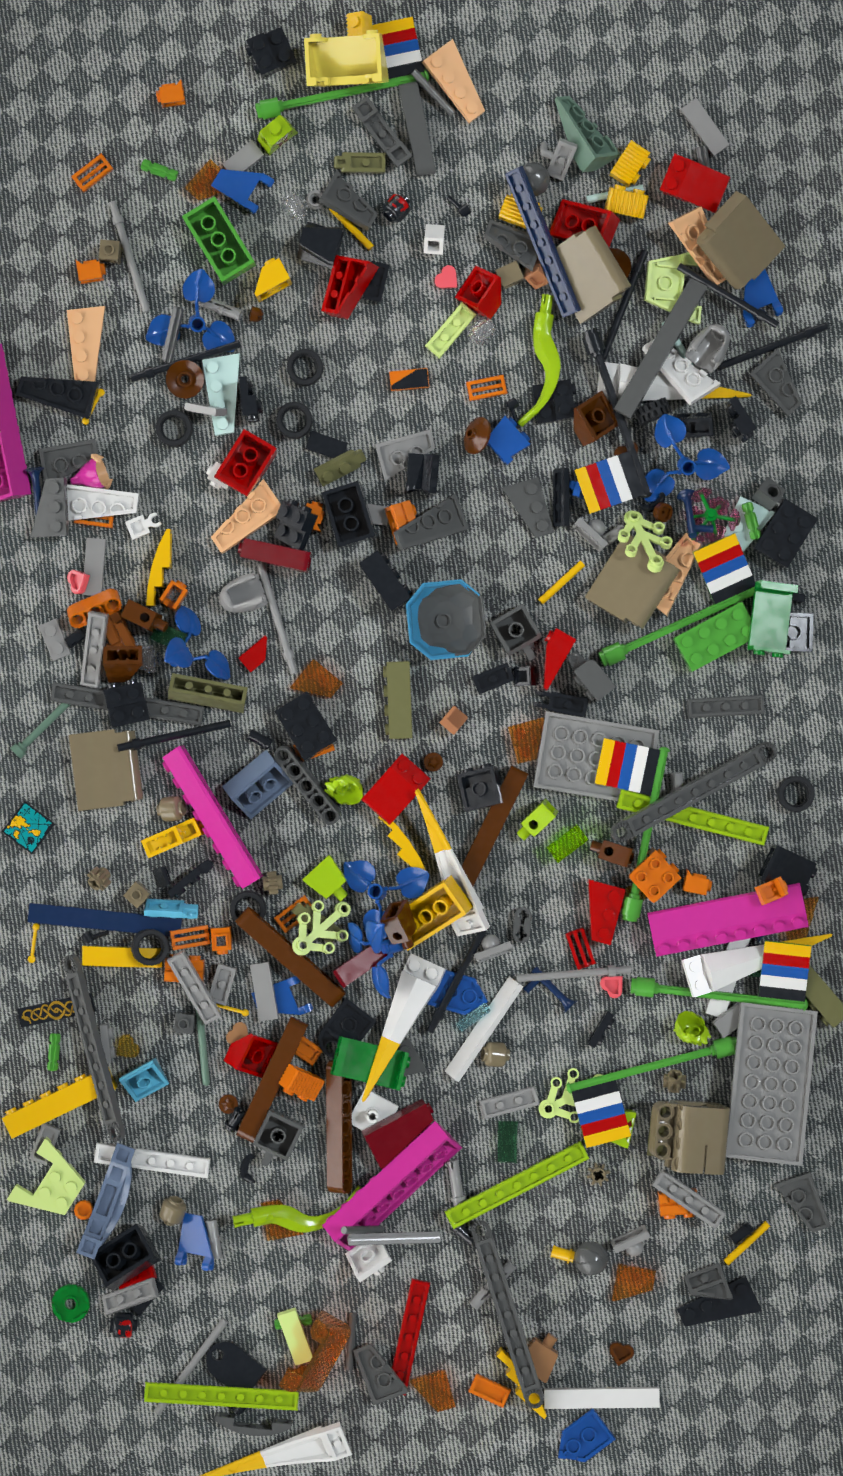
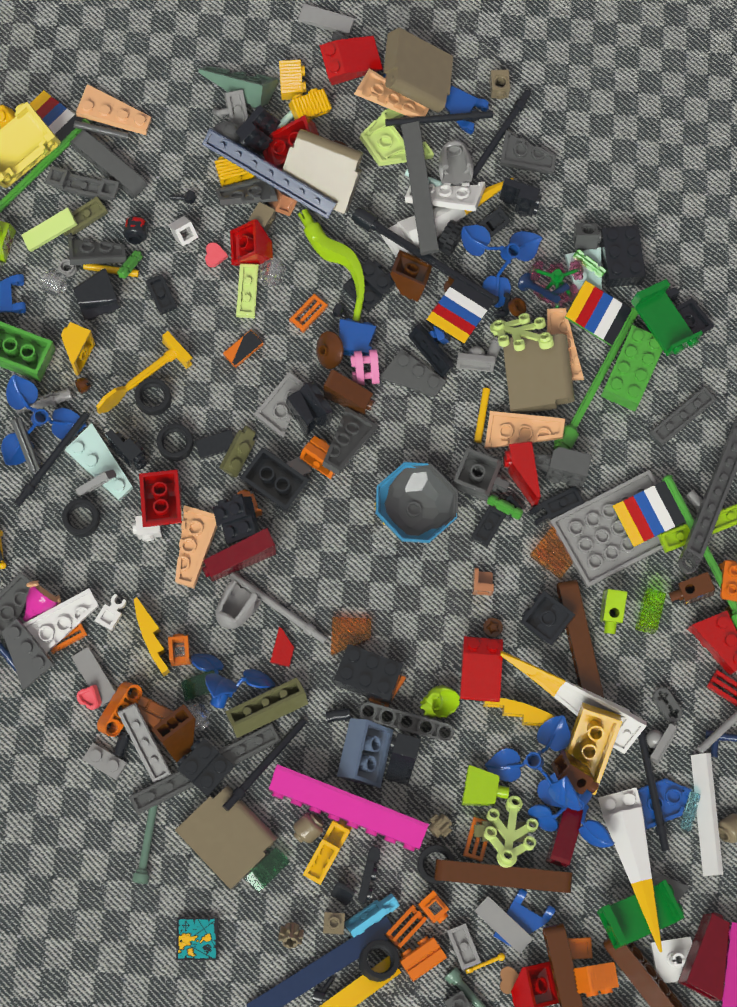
camera: 50 degrees left, 15 degrees down
(117, 816) = (267, 869): none -> clear green slope
(139, 615) = (159, 684): reddish brown torso -> none
(182, 389) = (63, 463): reddish brown dish -> none
(194, 987) = (443, 966): light grey tile -> none
(281, 811) = (403, 757): none -> black wedge
(324, 155) = (49, 229): none -> yellowish green tile
(346, 285) = (140, 309): red wedge -> none
(346, 1022) = (589, 897): black tile -> none
(349, 341) = (175, 351): none -> yellow piece
(368, 236) = (129, 264): none -> bright green axle
(386, 580) = (344, 510): black brick -> none
(399, 700) = (427, 598): olive brick -> none
(464, 484) = (347, 393): none -> reddish brown slope
(485, 474) = (358, 360): none -> bright pink brick
(518, 673) = (505, 507): none -> bright green axle
(561, 194) = (256, 130): none -> black plate
(579, 617) = (518, 428): none -> light nougat wing
(637, 269) = (364, 176): black bar -> none
(810, 294) = (499, 77): none -> dark tan brick

